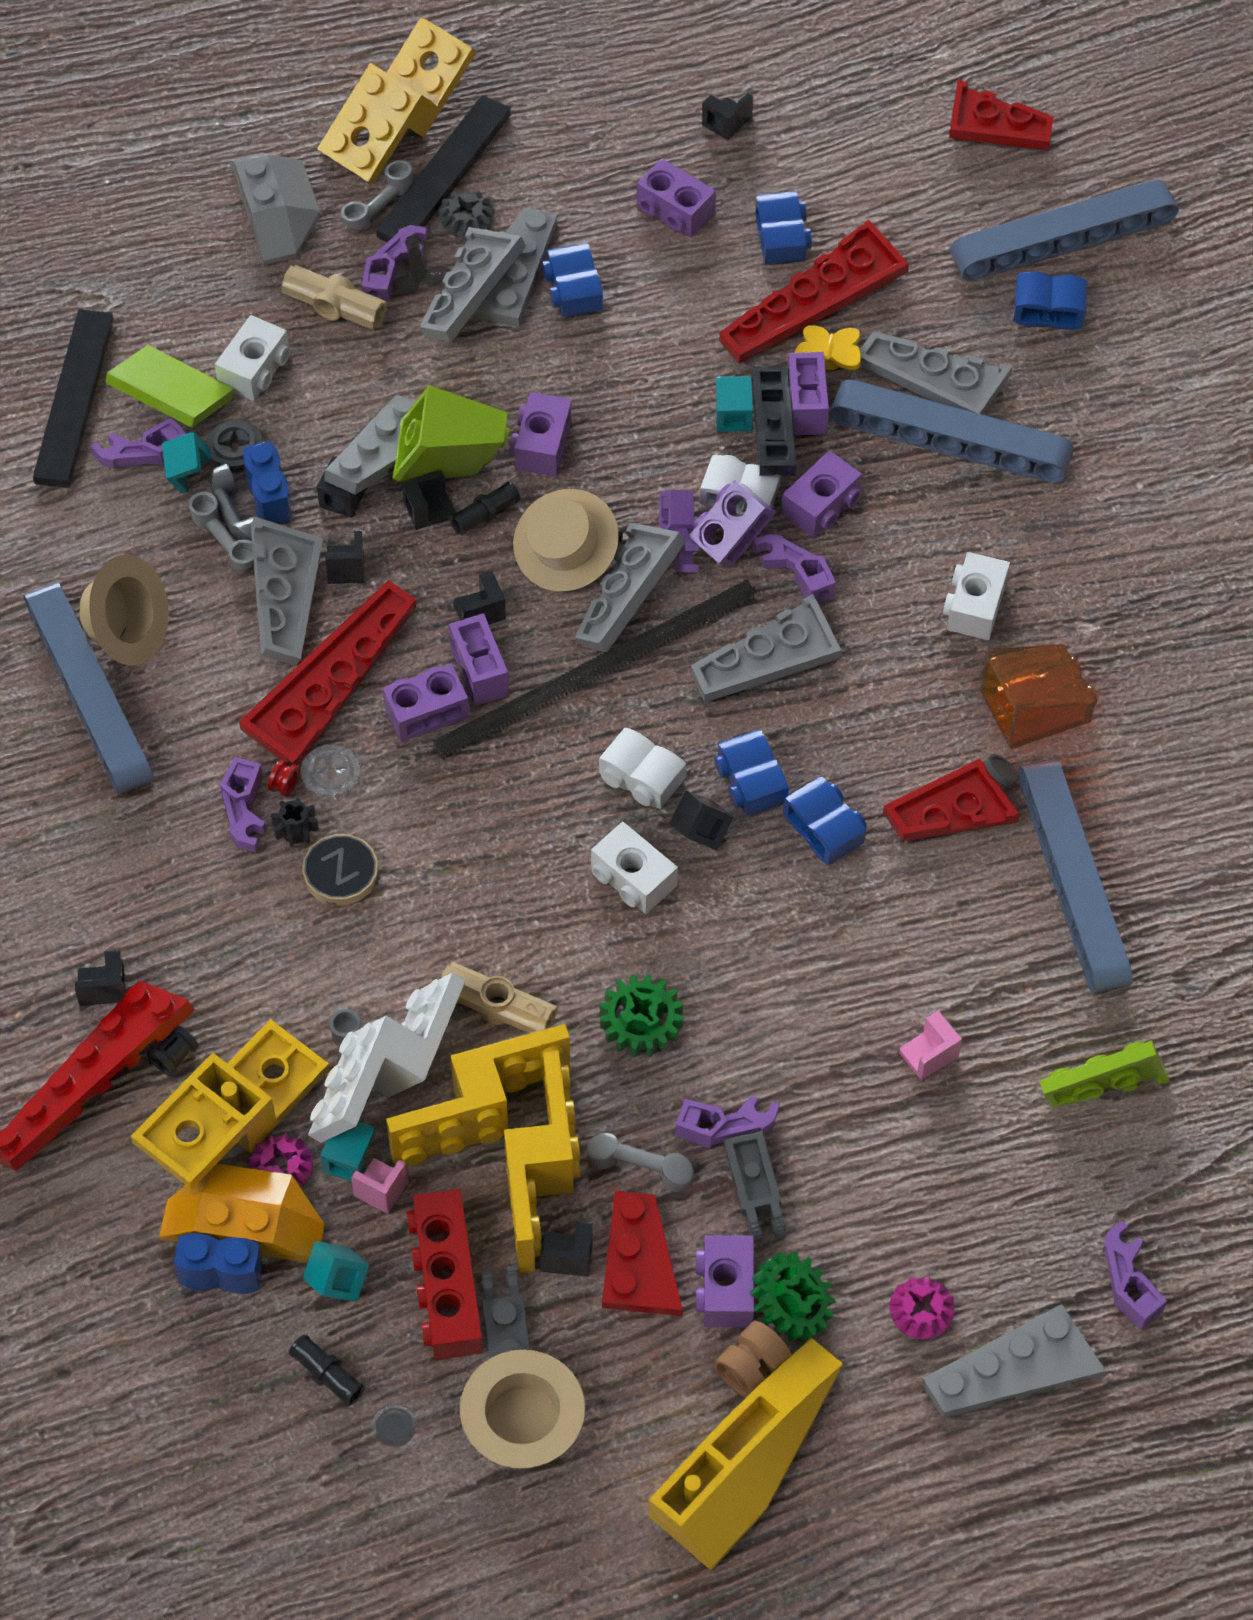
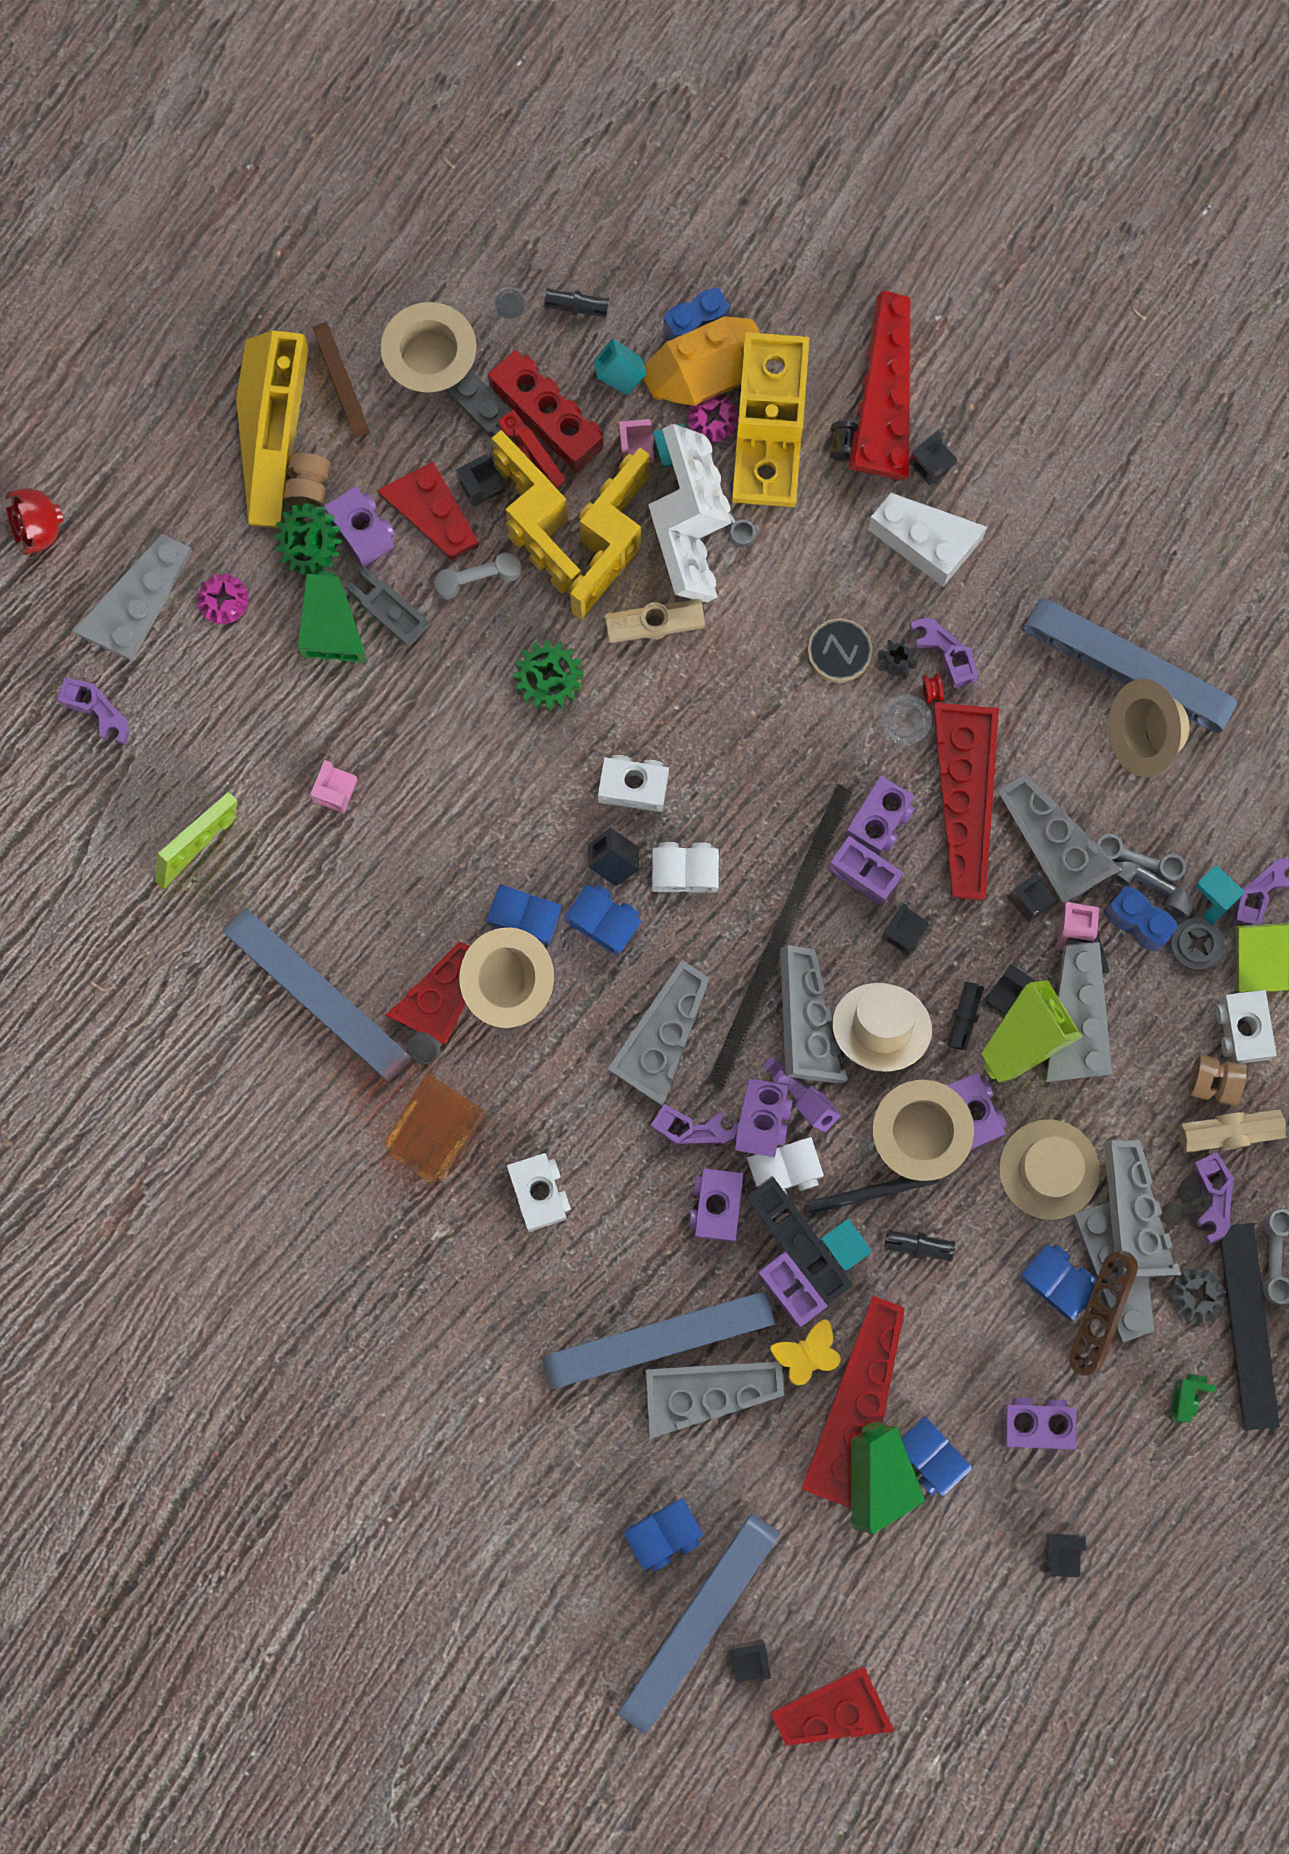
camera: 145 degrees right, 20 degrees up
(171, 905) = (926, 536): none -> white wedge
(314, 333) = (1228, 1084): none -> medium nougat wheel
(330, 506) = (1077, 922): none -> bright pink panel
(495, 1234) = (531, 447): none -> red hinge
(508, 364) = (1049, 1169): none -> tan hose
(539, 152) = (1184, 1401): none -> green bracket
(557, 225) = (1107, 1315): none -> reddish brown beam
(598, 435) = (923, 1130): none -> tan hose
(638, 1453) = (340, 379): none -> reddish brown beam
(669, 371) = (919, 1245): none -> black pin
(674, 433) = (866, 1193): none -> black bar
(743, 1122) = (431, 639): medium lavender piece -> none
(827, 1205) = (327, 622): none -> green slope
(840, 223) = (881, 1479): none -> green slope
(884, 765) = (506, 977): none -> tan hose
(1037, 186) = (750, 1661): none -> black panel
(1078, 1508) = (33, 519): none -> red cylinder

